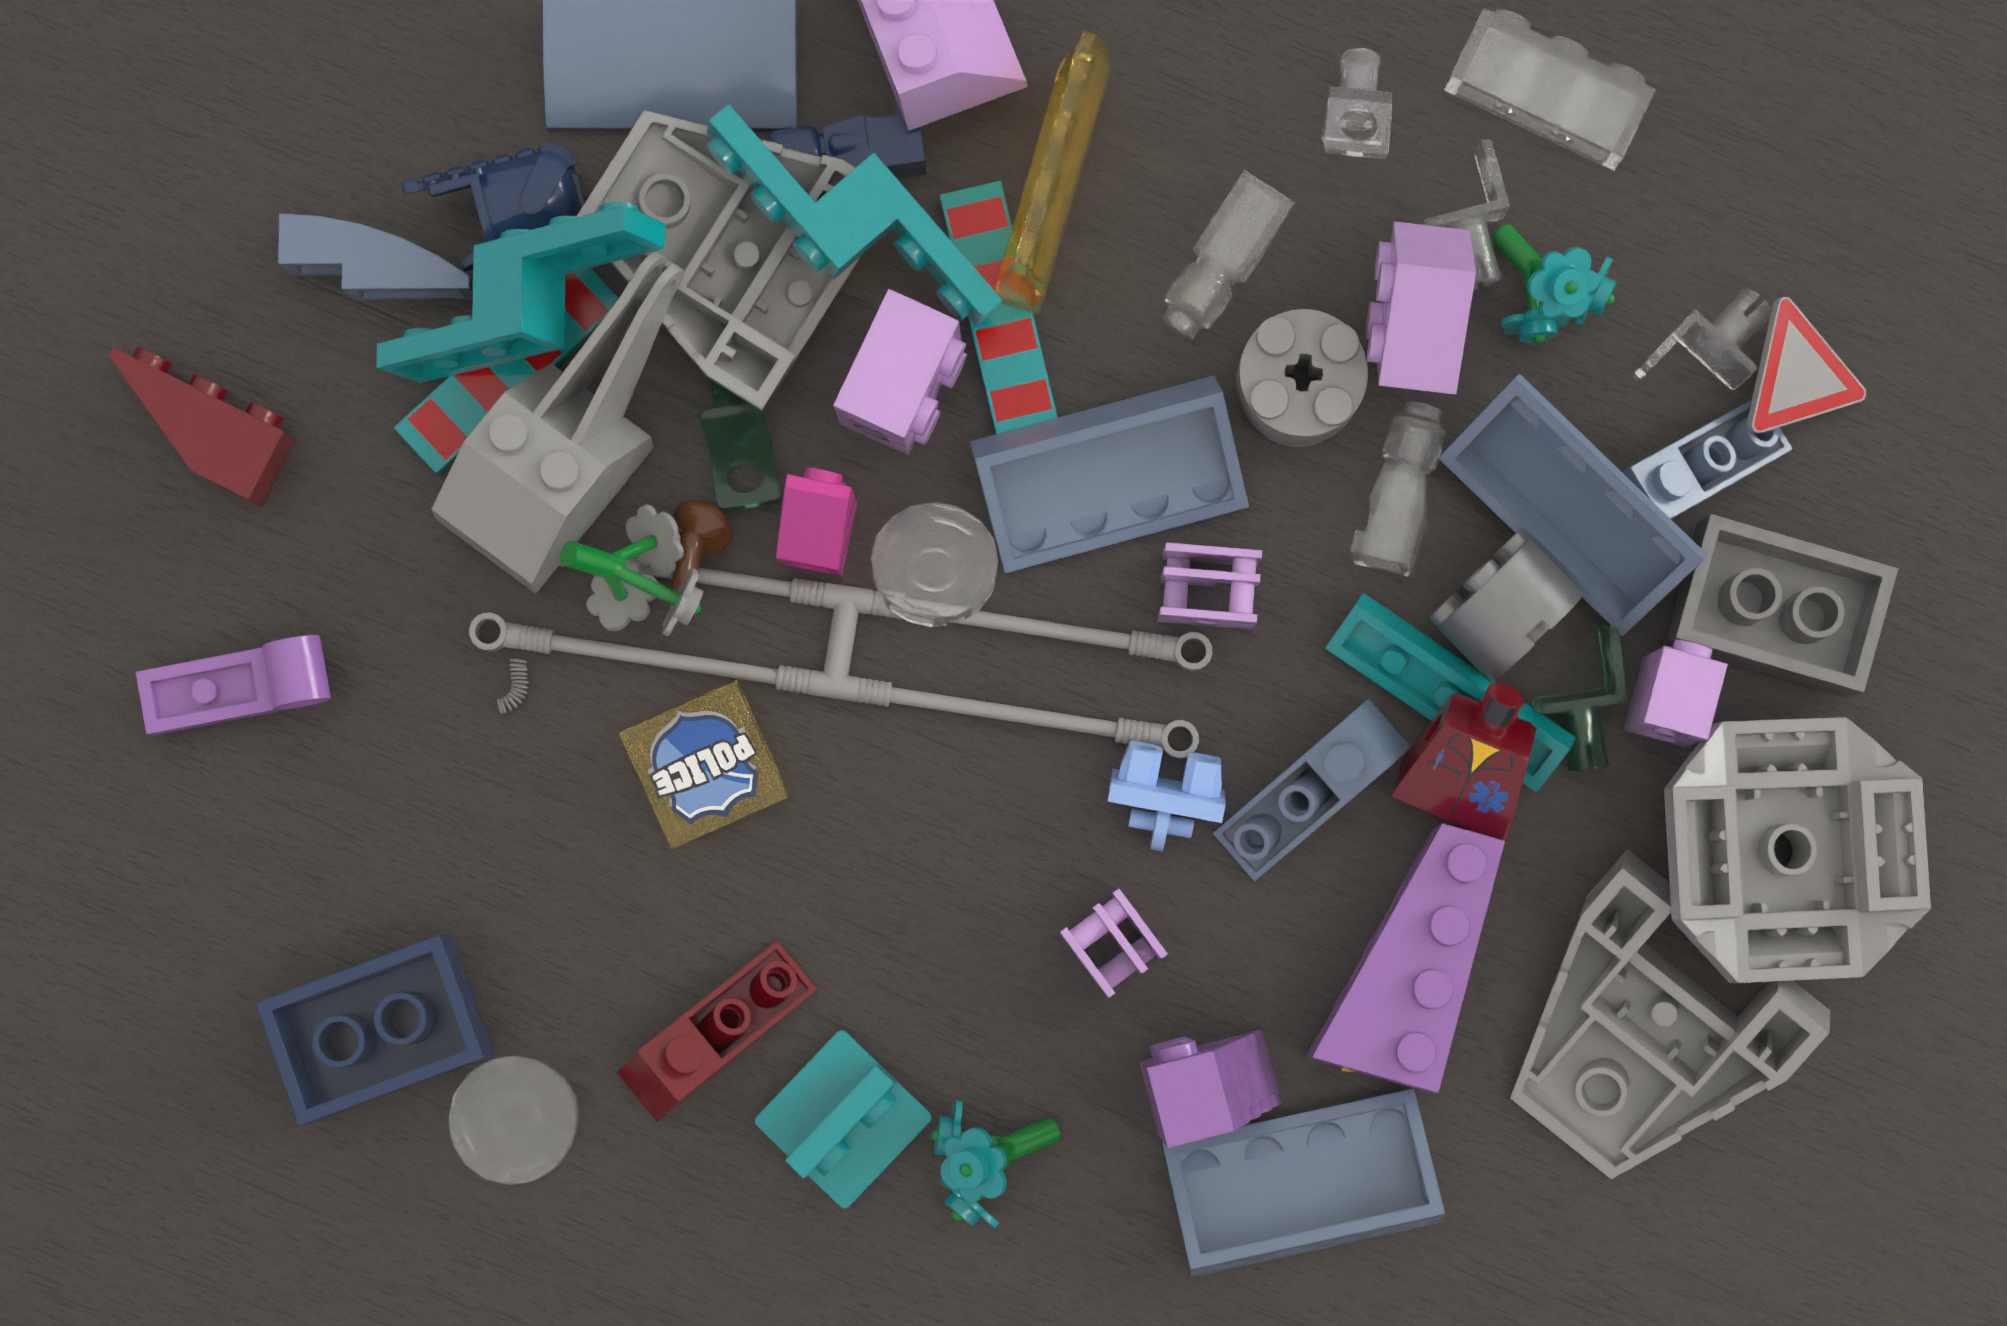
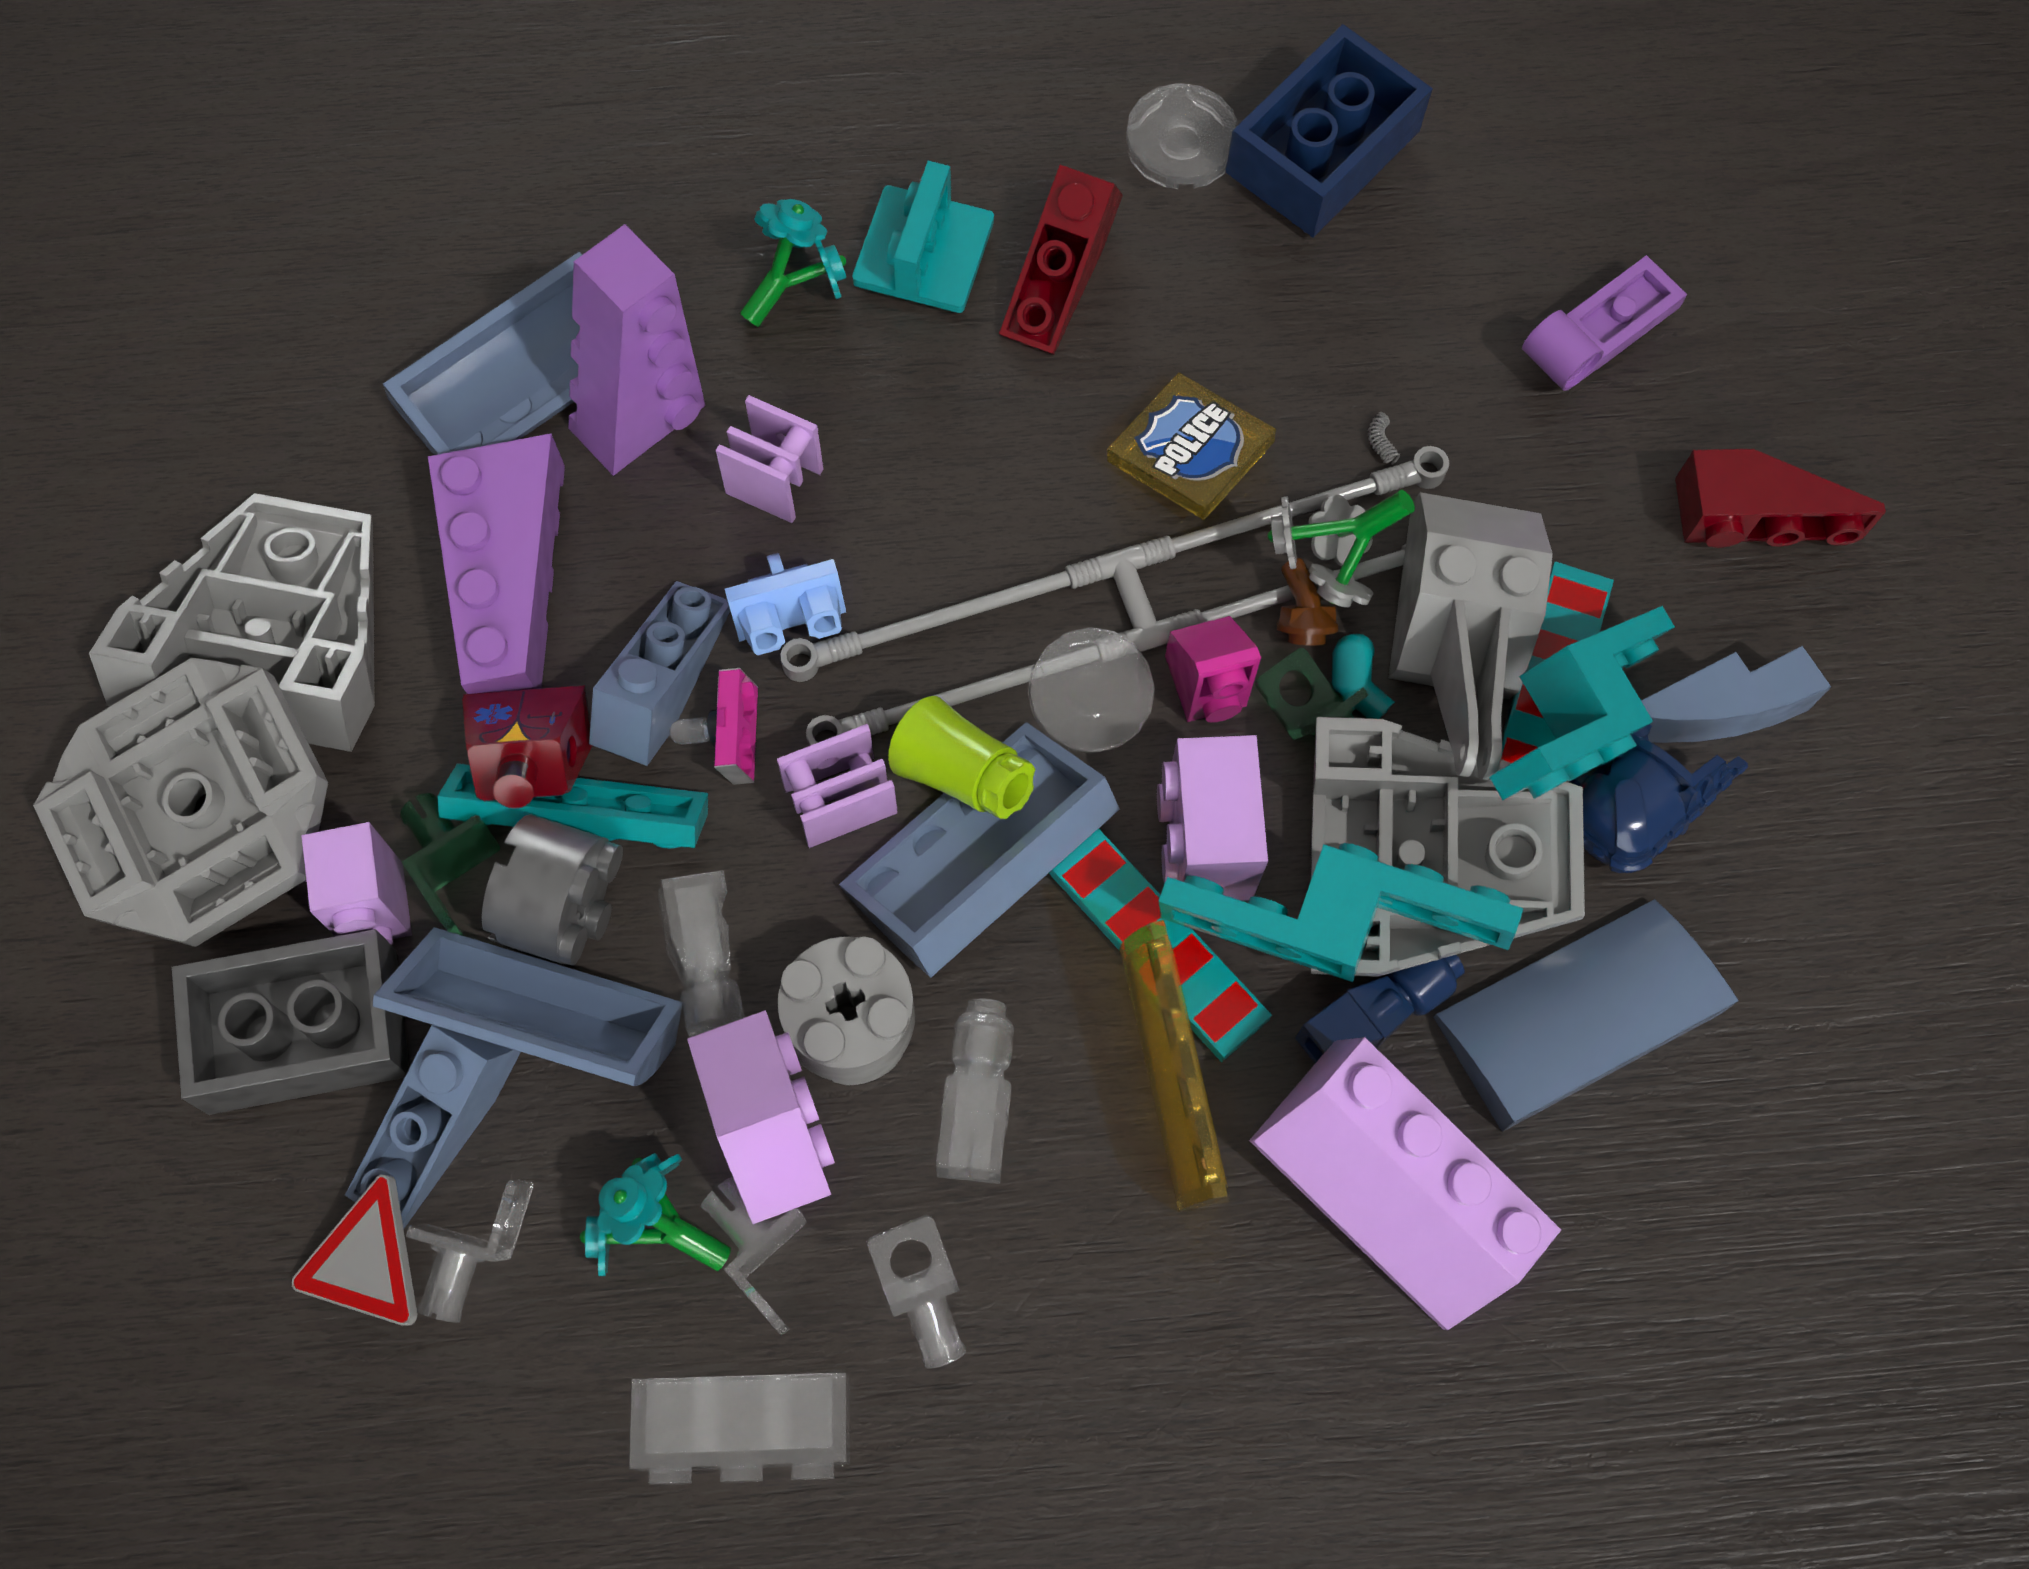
camera: 145 degrees right, 15 degrees down
(687, 460) = (1353, 670): none -> teal arm
(1090, 545) = (959, 759): none -> lime plant
(1276, 701) = (728, 727): none -> dark pink piece

